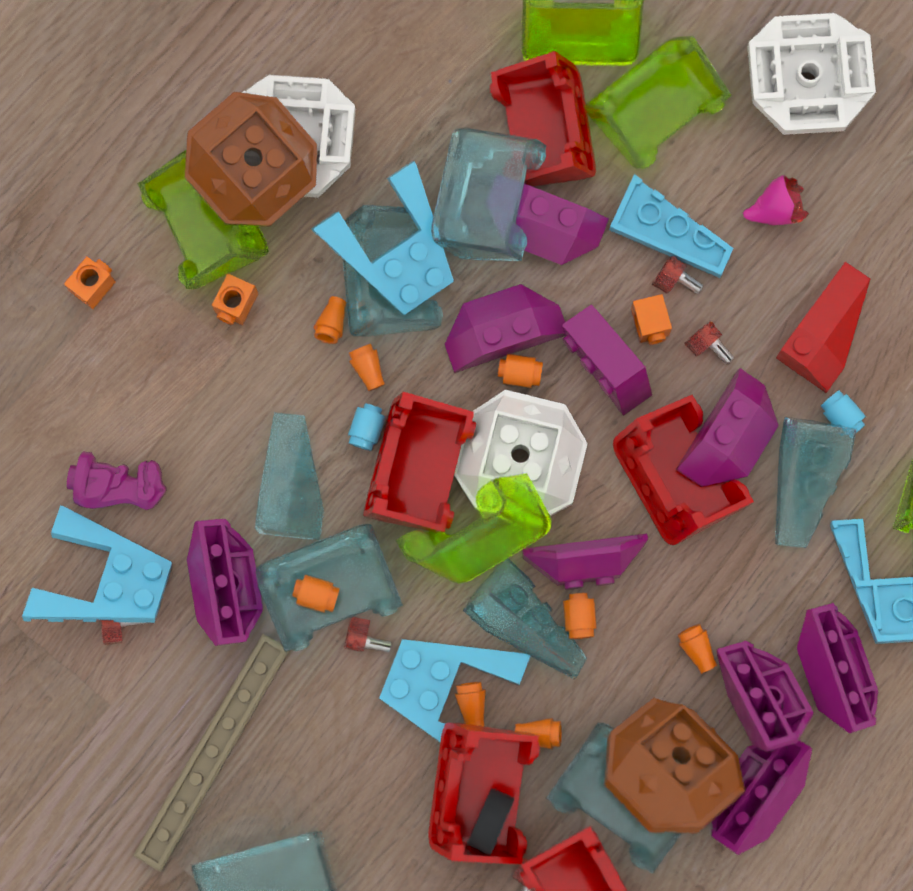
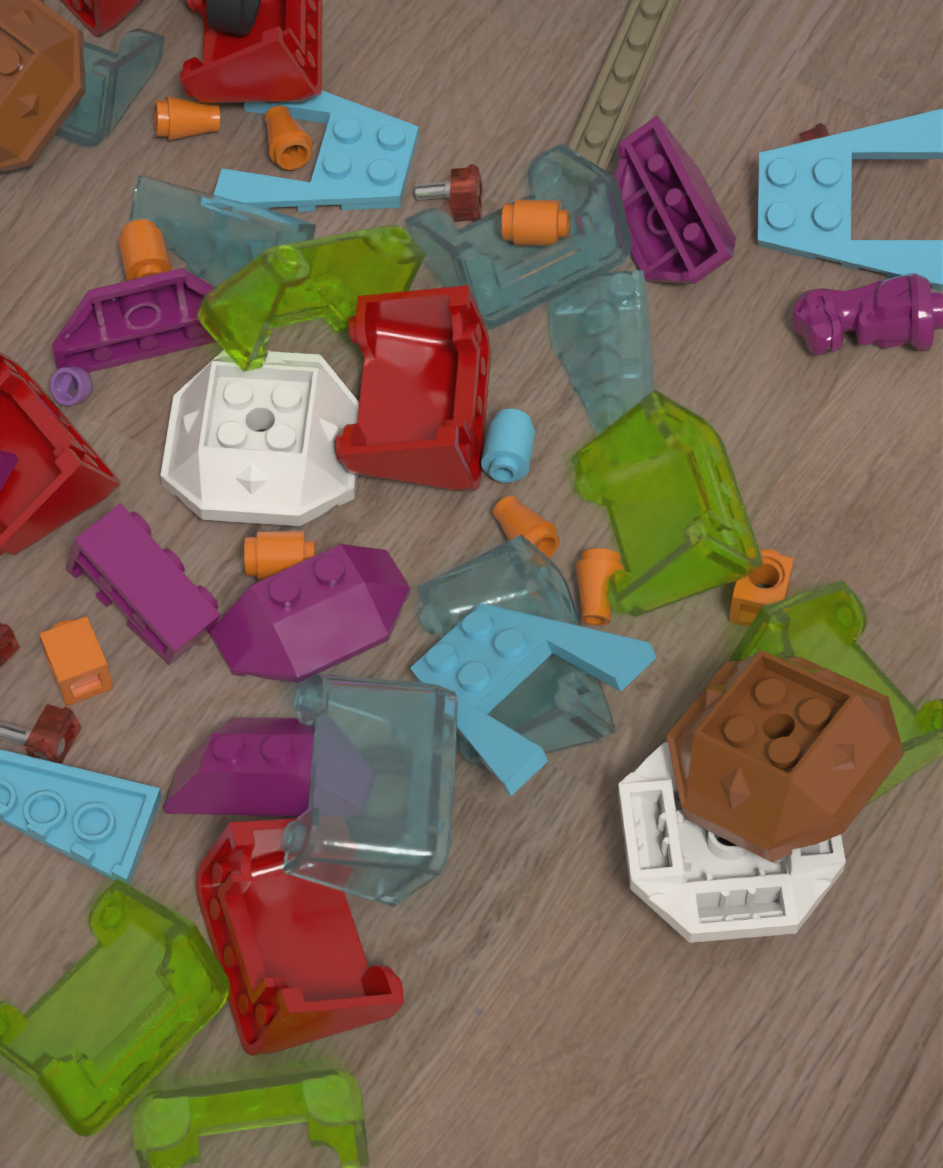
camera: 165 degrees right, 20 degrees down
(277, 345) = (668, 505): none -> clear neon green windscreen
(637, 521) = (66, 380): none -> medium lavender hinge

